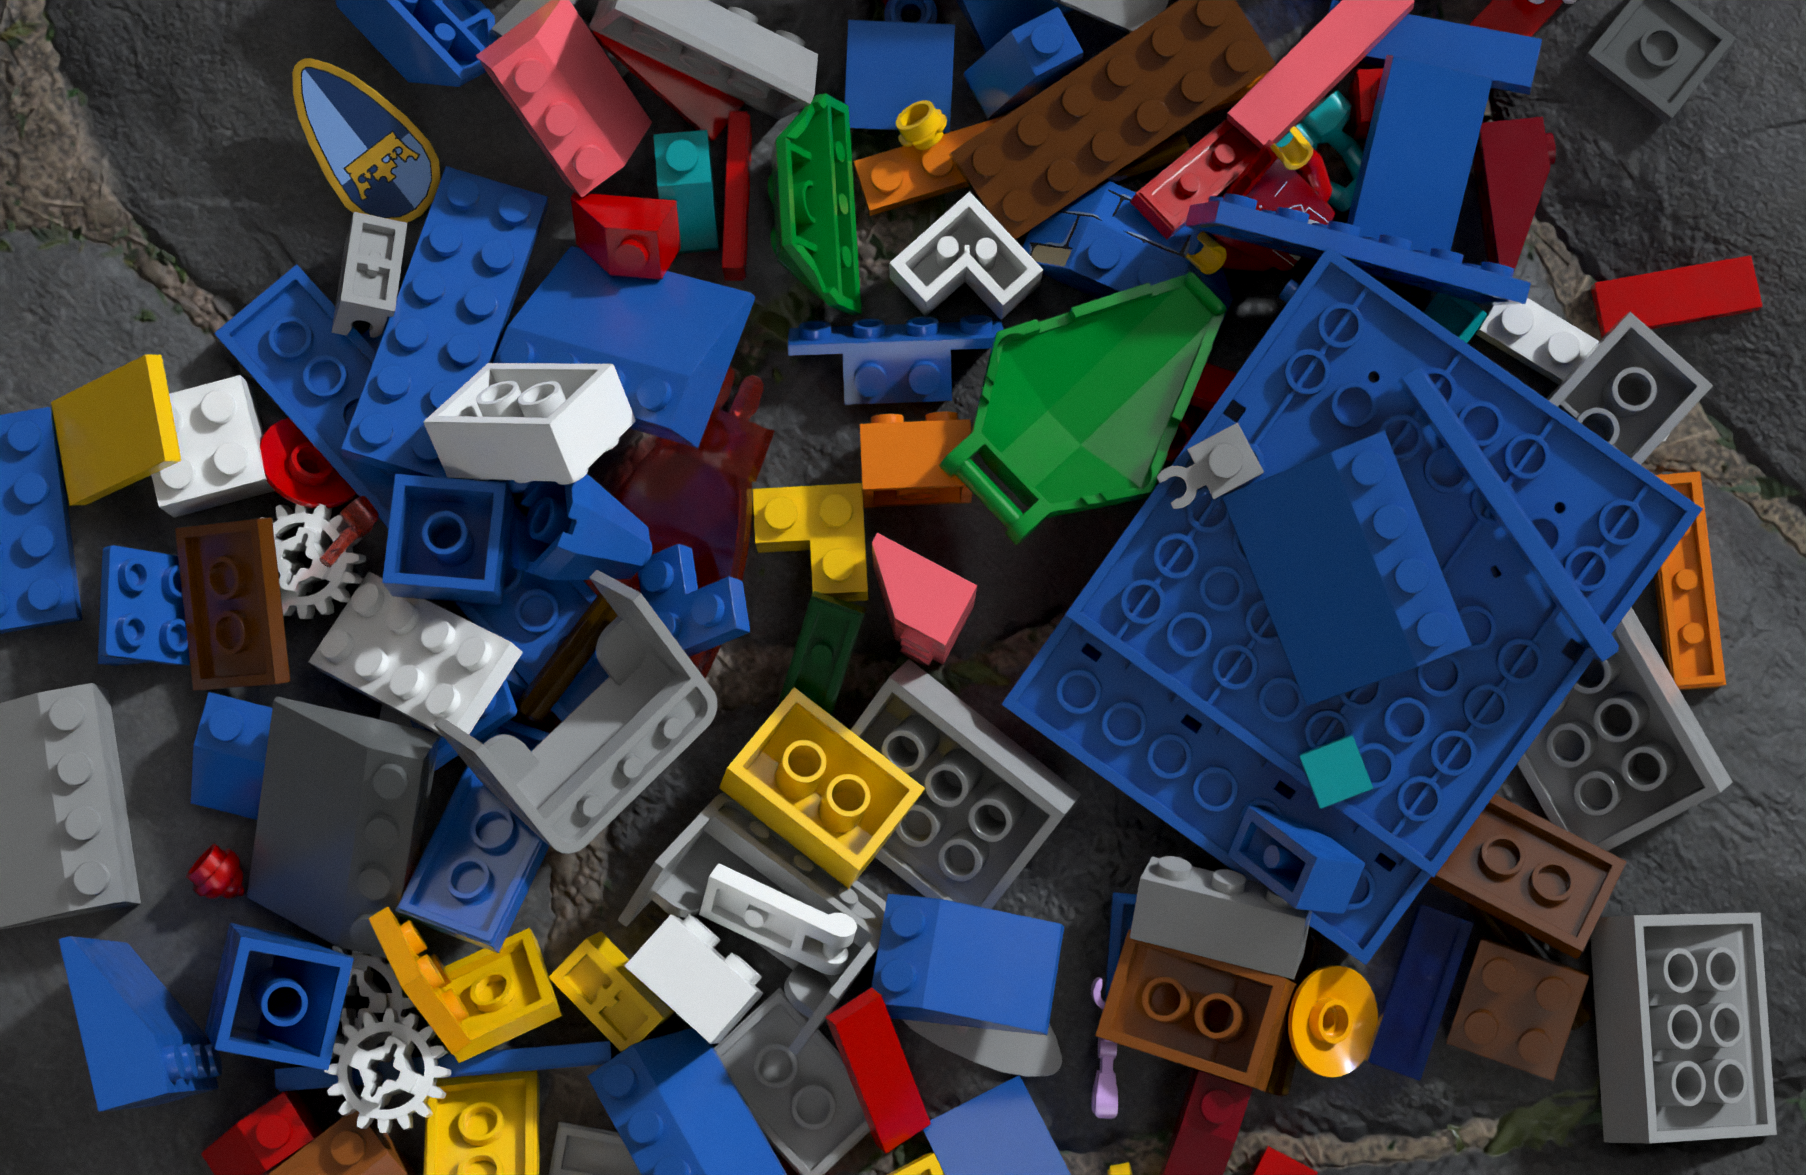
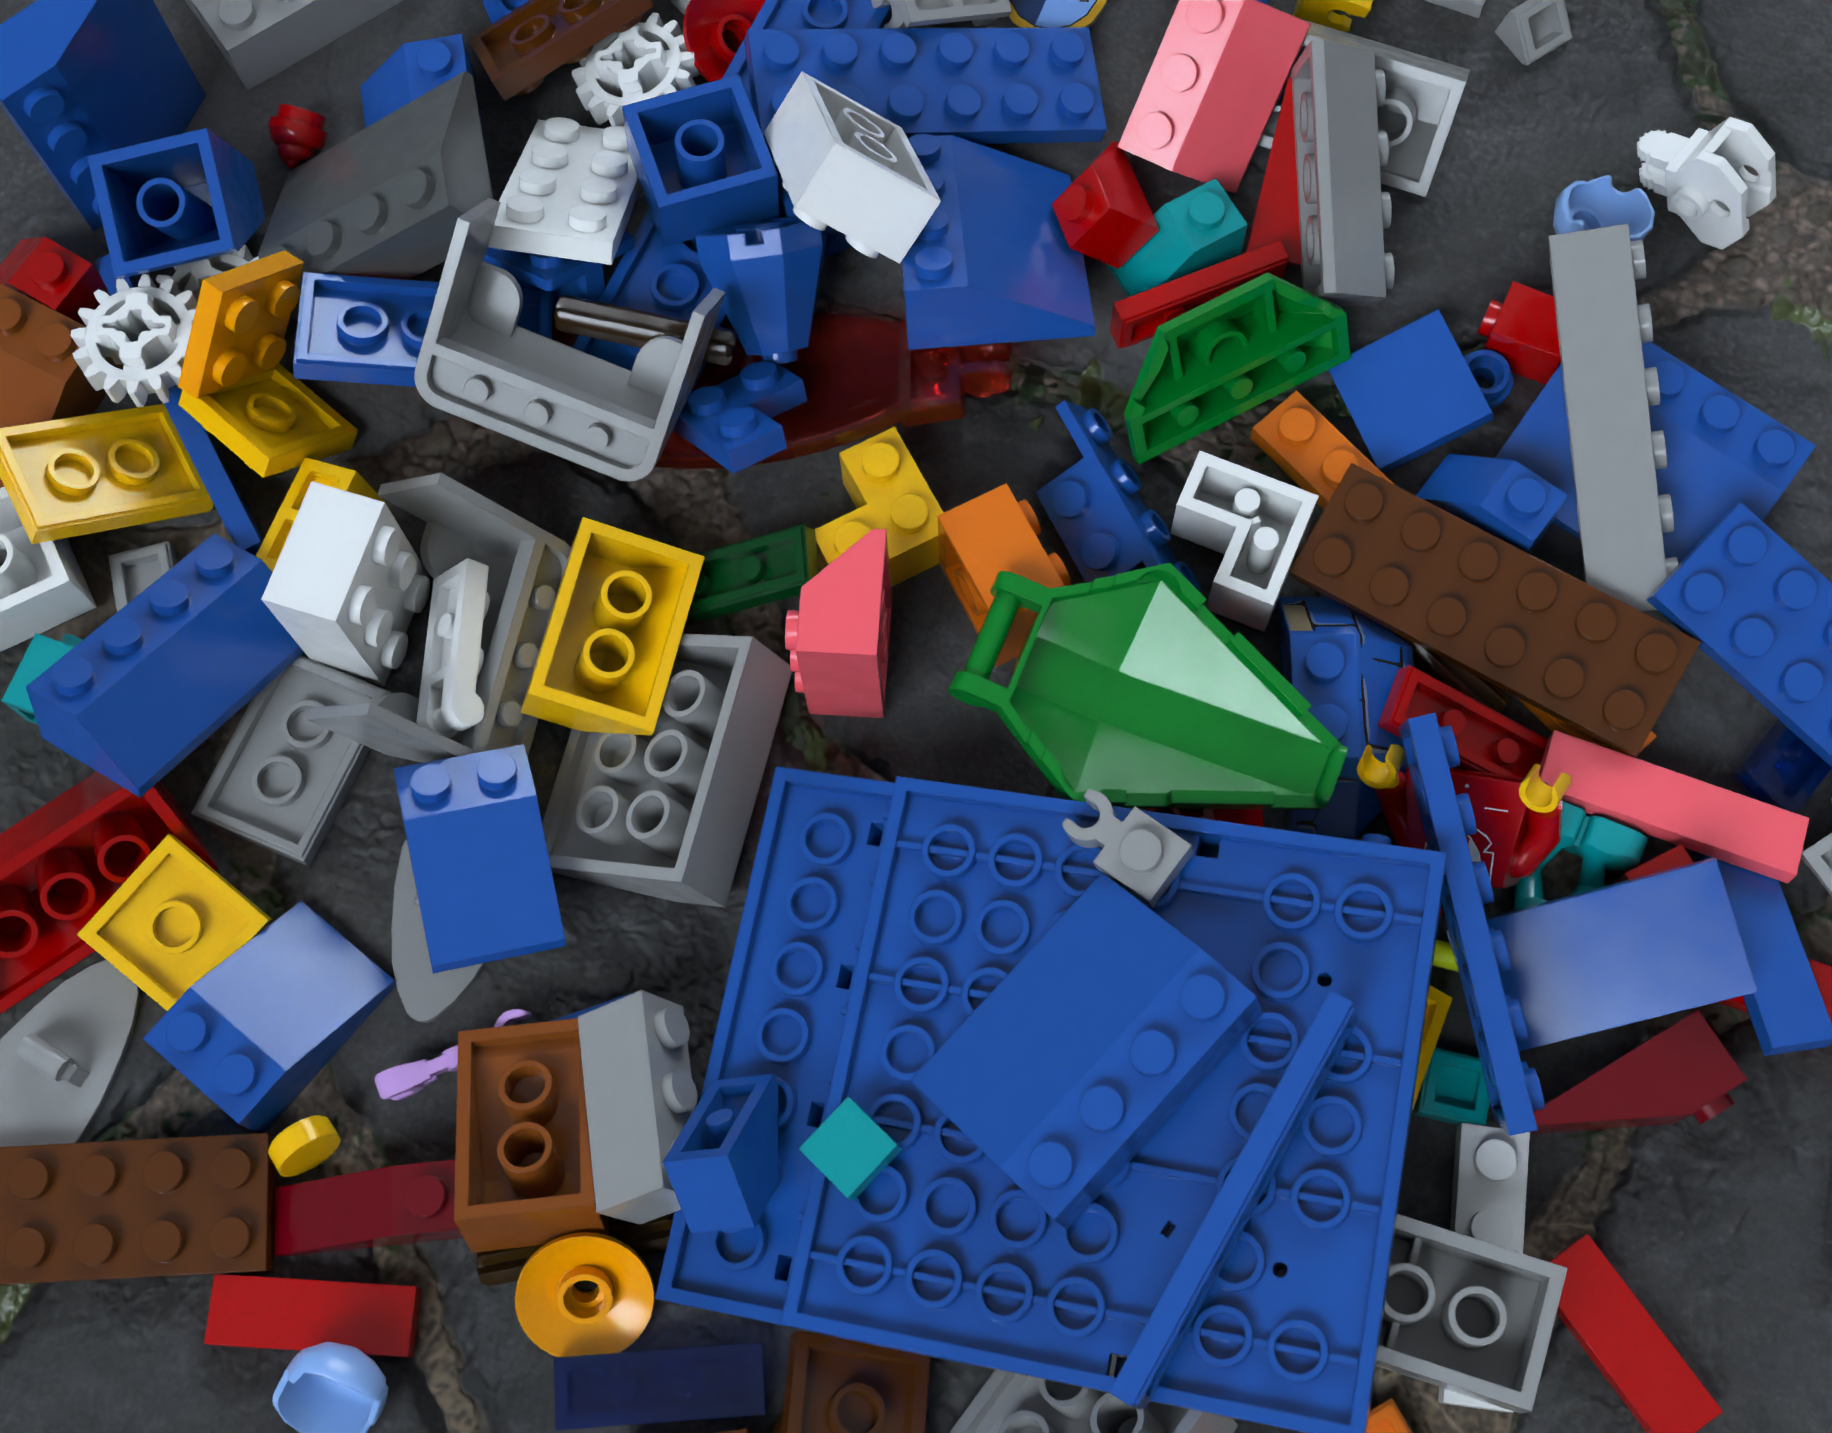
camera: 70 degrees right, 10 degrees down
(360, 518) = (694, 78): clear red hand -> none
(878, 1070) = (328, 814): red tile -> none
(920, 125) = (1366, 430): yellow plate -> none

